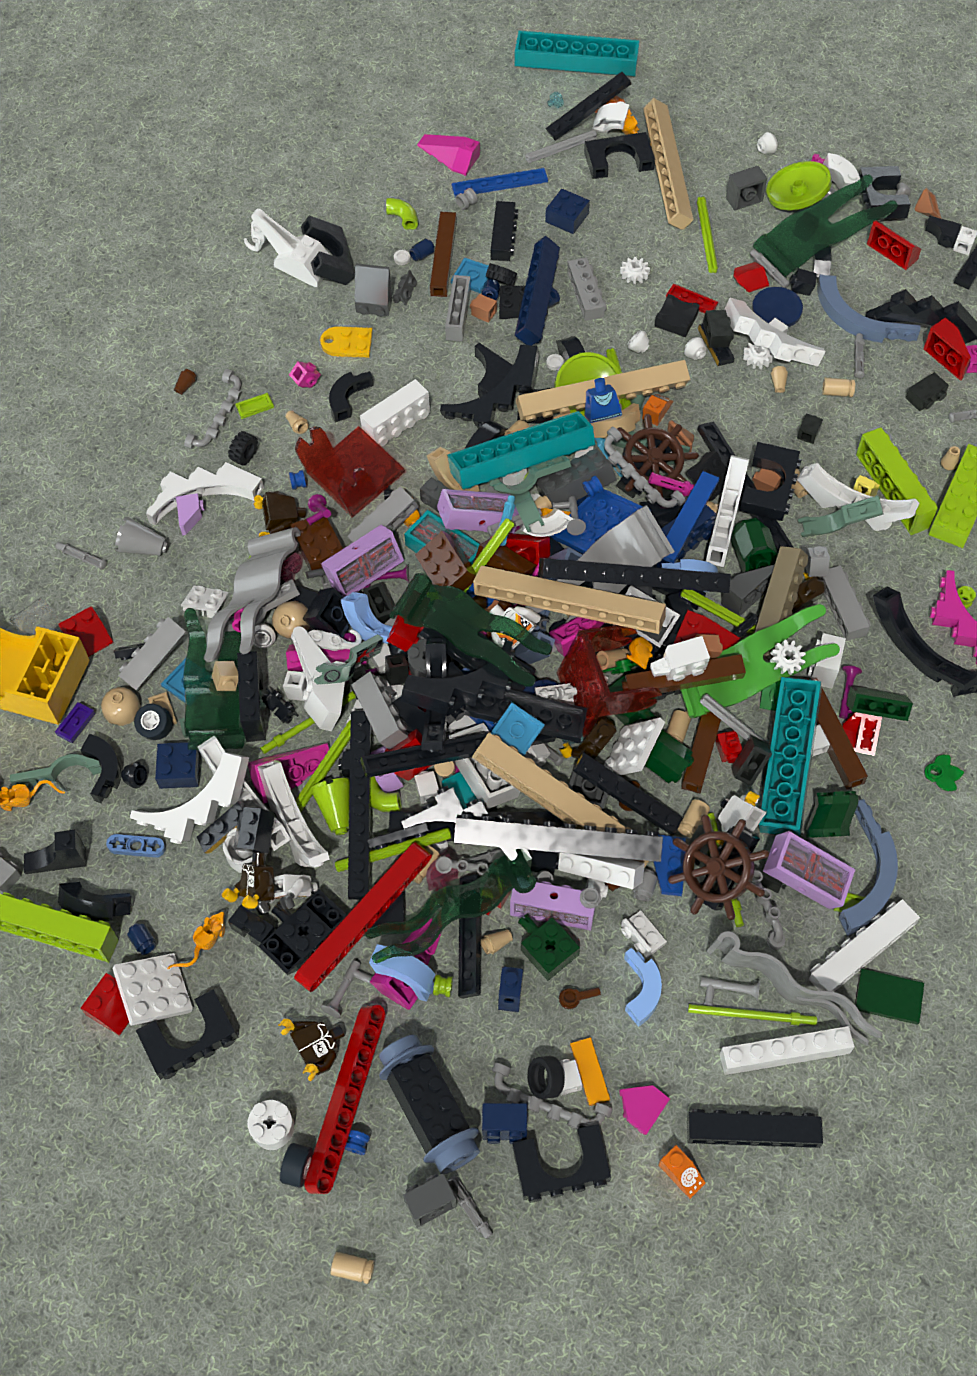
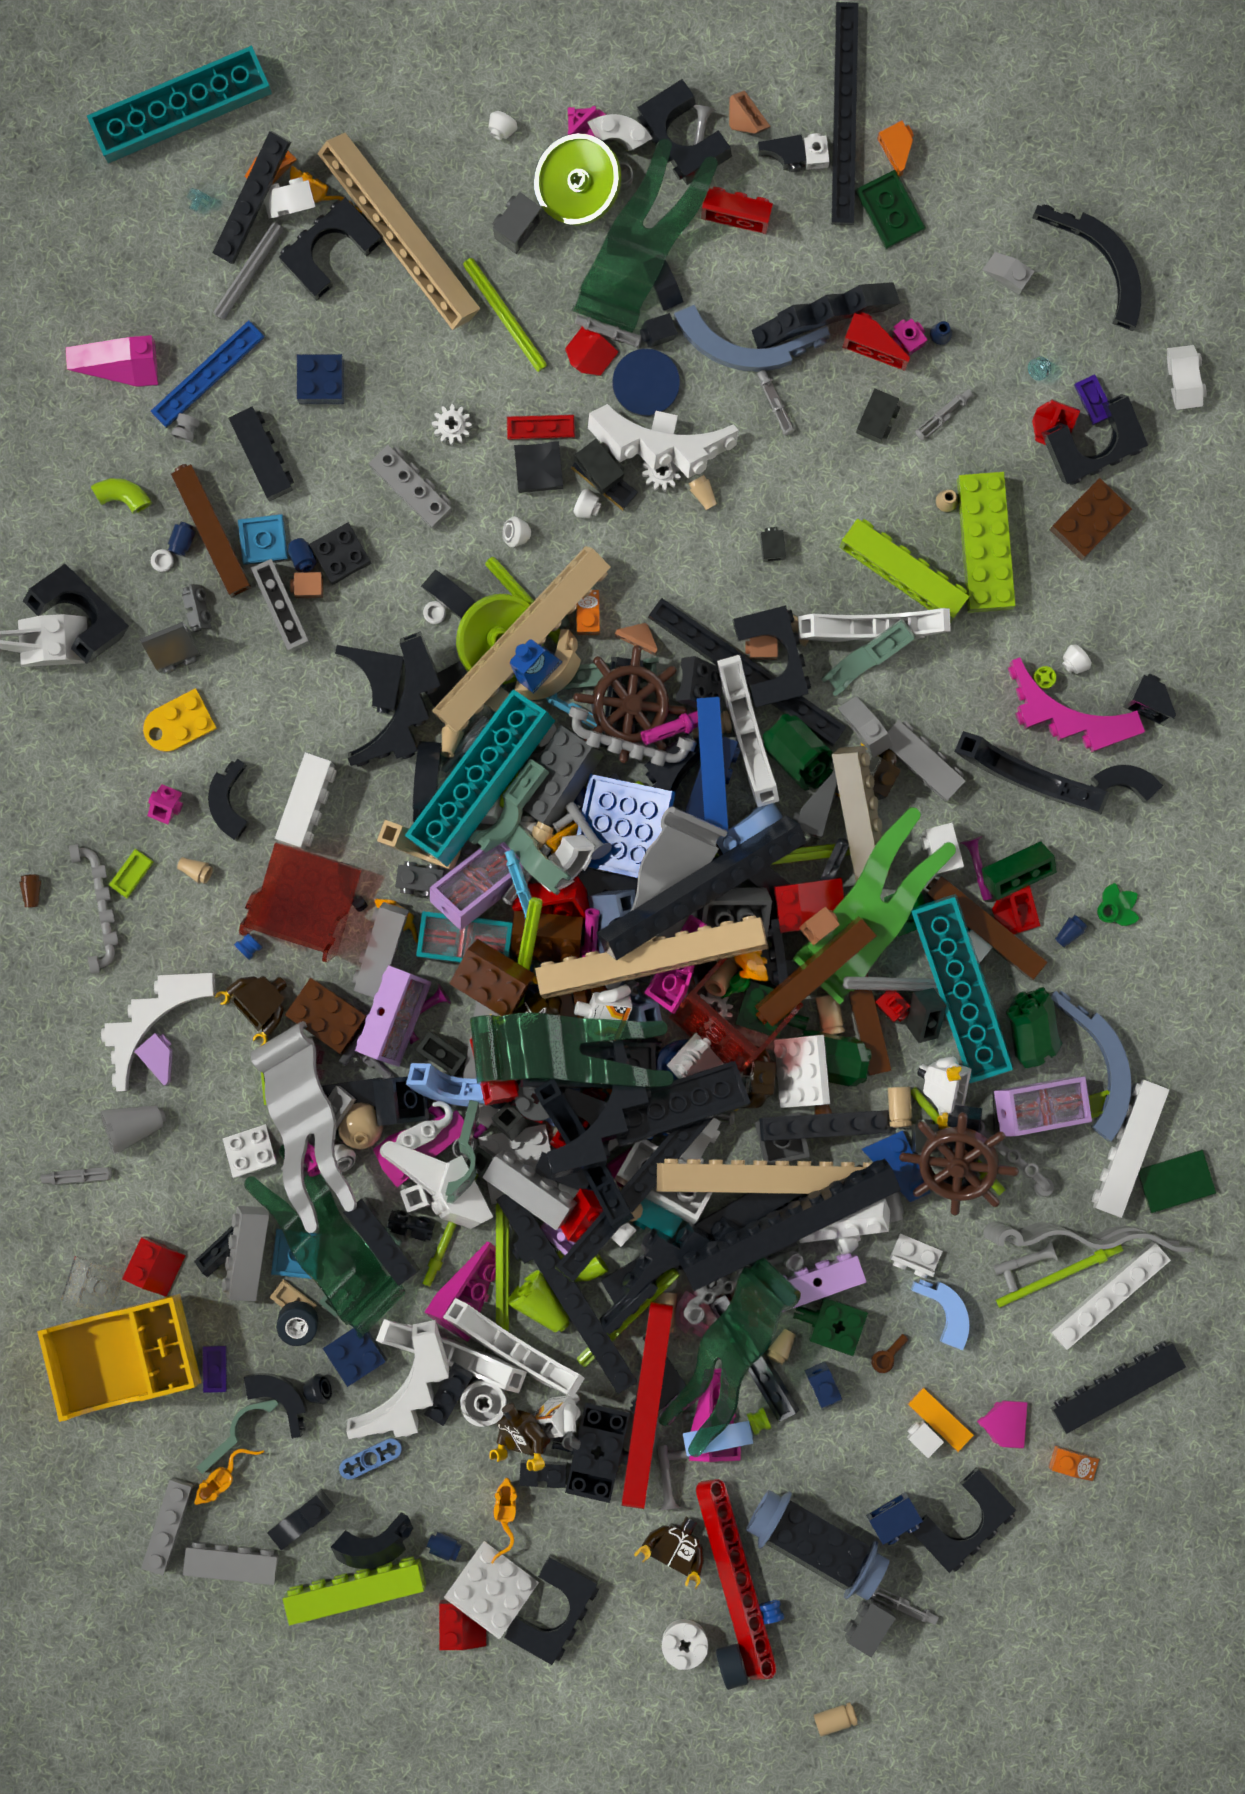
camera: 30 degrees left, 25 degrees up
(120, 706) = (248, 1323): tan cylinder -> none
(225, 676) = (341, 1236): tan brick -> none
(243, 448) = (163, 945): black tyre -> none
(254, 830) = (491, 1393): black slope -> none
(315, 504) = (289, 963): magenta piece -> none
(501, 274) = (302, 528): black tyre -> none
(518, 728) = (683, 1135): dark azure tile -> none
(538, 292) = (362, 532): dark blue hinge -> none
(554, 1112) = (909, 1479): light grey bar -> none
(555, 1077) = (913, 1461): black tyre -> none
(590, 898) = (854, 1267): light grey plate -> none
(592, 486) = (587, 784): blue wheel -> none
(682, 660) = (810, 972): white hinge -> none
(790, 650) = (907, 896): white gear -> none
(838, 387) = (775, 466): tan piece -> none
(866, 486) = (875, 599): light yellow arch -> none
(897, 769) = (1072, 929): none -> dark blue cone

